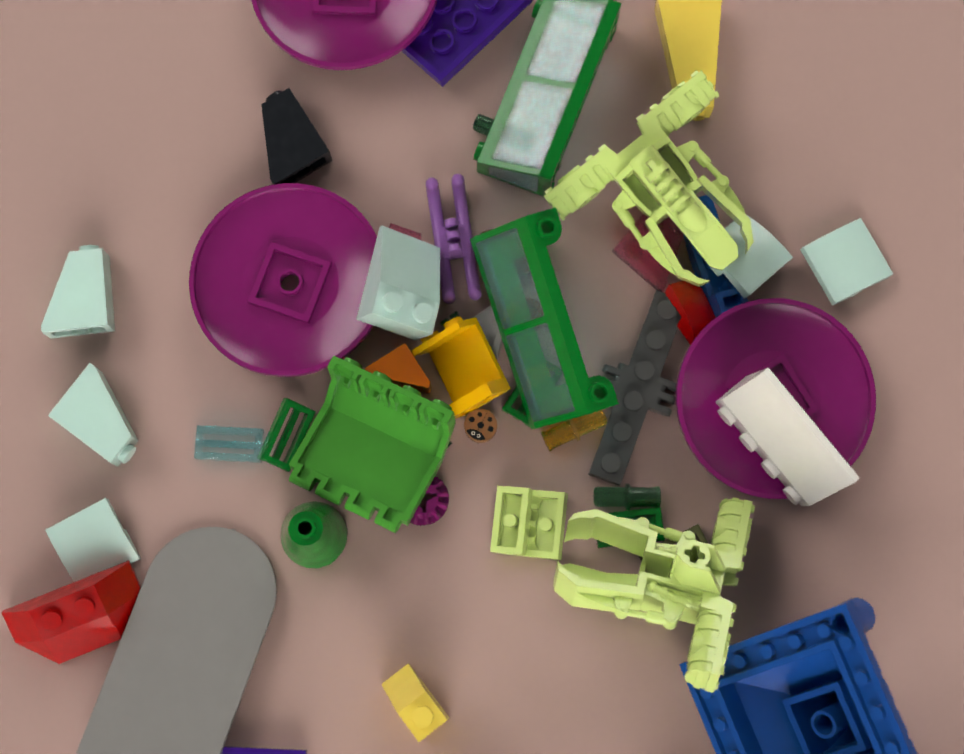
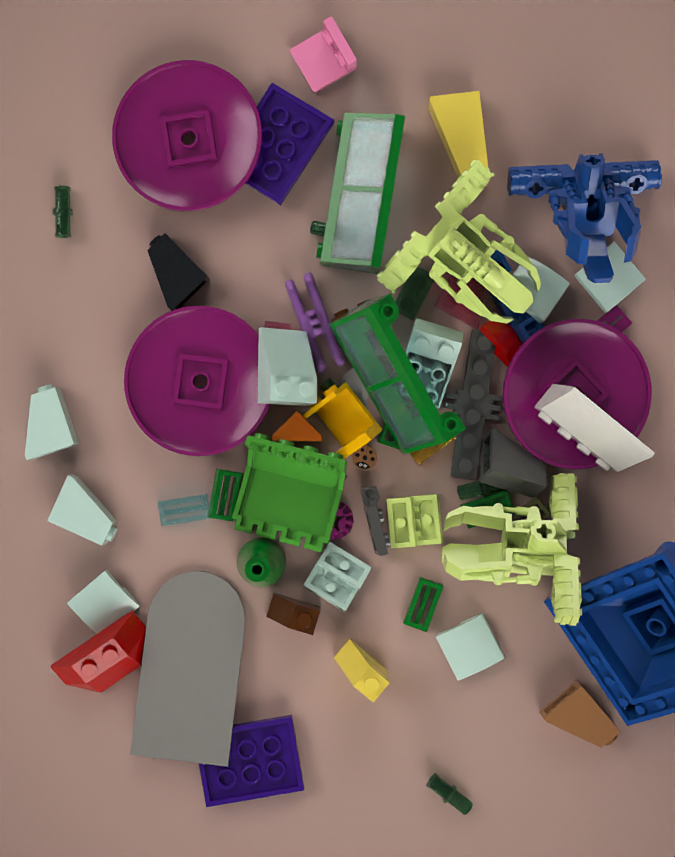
camera: 15 degrees left, 10 degrees up
(167, 39) = (62, 211): none -> clear green pin
(341, 610) = (294, 613): none -> reddish brown slope
(409, 575) = (337, 576): none -> light aqua slope
(476, 507) = (375, 519): none -> dark grey hinge
(502, 661) = (430, 584): none -> green tile
(568, 708) = (470, 646): none -> light aqua slope
(588, 229) = (414, 293): none -> clear green plate
(598, 311) = (433, 355): none -> light aqua slope
(670, 475) = (510, 466): none -> dark grey slope
(837, 159) = (593, 203): none -> blue piece
(847, 315) = (616, 319): none -> magenta tile

